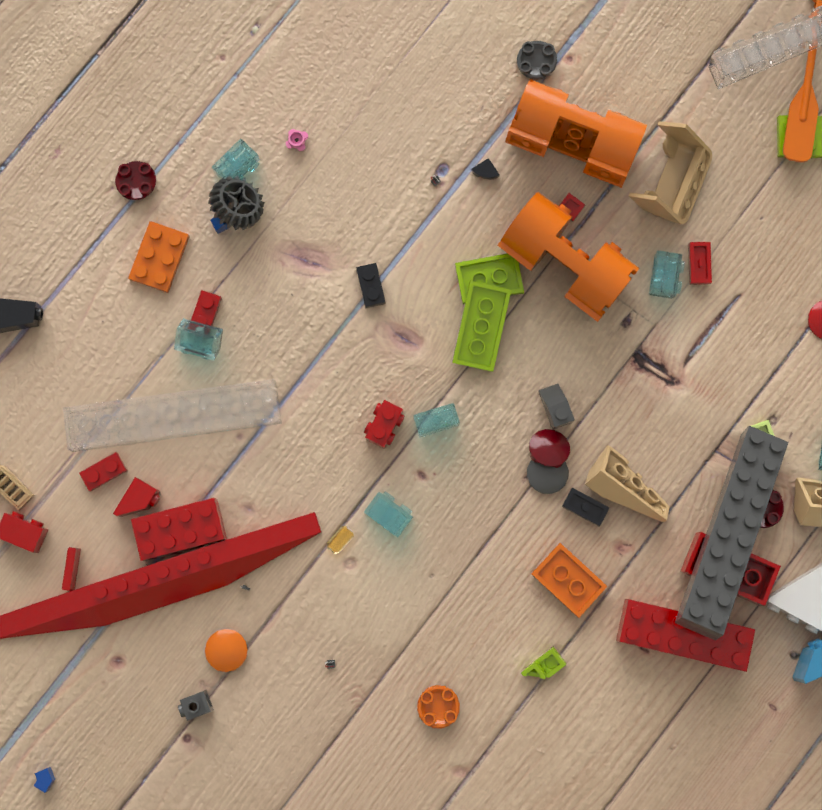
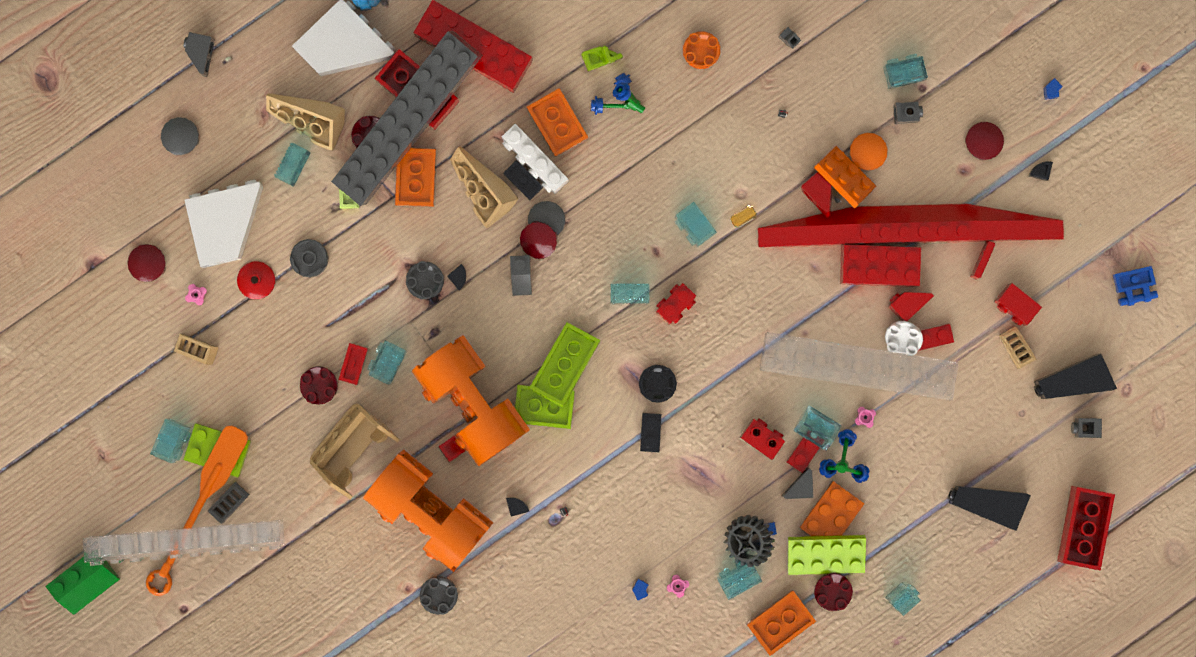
camera: 165 degrees left, 5 degrees up
(33, 686) = (1041, 171): none -> black tile
(60, 192) = (903, 598): none -> clear light blue brick
(103, 700) = (984, 140): none -> dark red dish
(133, 460) = (903, 338): none -> white dish
(147, 362) = (870, 417): none -> bright pink plate
(152, 214) = (826, 554): none -> lime plate
(174, 303) = (829, 467): none -> blue plant
(180, 134) = (781, 622): none -> orange plate
(198, 274) = (801, 487): none -> dark grey slope
(210, 749) = (905, 72): none -> clear light blue brick
(243, 613) = (845, 176): none -> orange plate
(252, 311) = (761, 440): none -> red brick
(265, 588) = (819, 192): none -> red slope
(334, 125) = (640, 589): none -> blue piece
(346, 749) = (789, 38): none -> dark grey piece
(378, 337) = (657, 383): none -> black dish
(510, 630) = (621, 92): none -> blue plant
(579, 532) = (535, 159): none -> white brick
(620, 385) = (458, 277): none -> black tile
(654, 371) = (424, 280): none -> dark grey dish
(698, 475) = (416, 178): none -> orange plate
(728, 231) = (318, 385): none -> dark red dish
(782, 358) = (309, 258): none -> dark grey tile
(783, 74) = (221, 519): none -> dark grey slope

